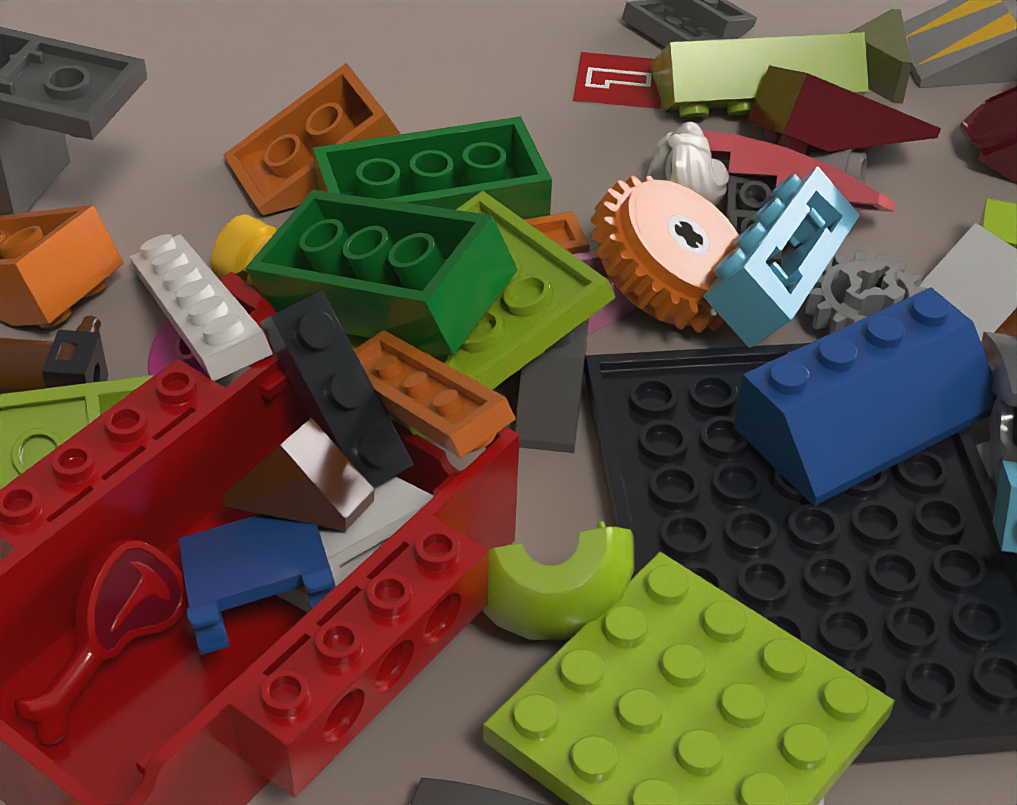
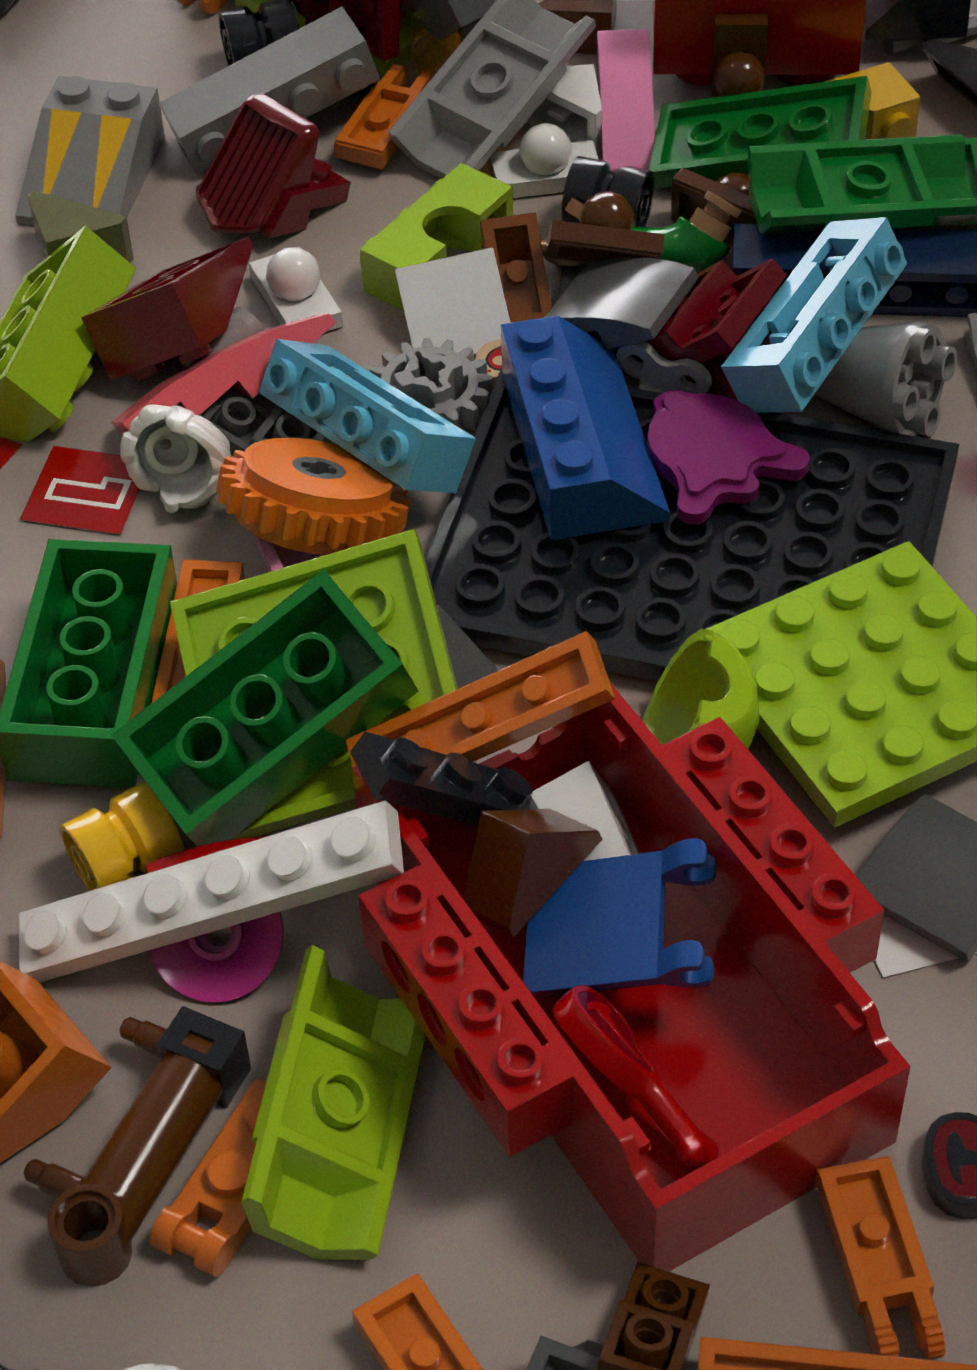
camera: 65 degrees left, 5 degrees up
(623, 151) = (82, 491): none -> red sticker
(922, 508) = (716, 451): none -> magenta tile
(930, 193) = (293, 286): none -> white tile

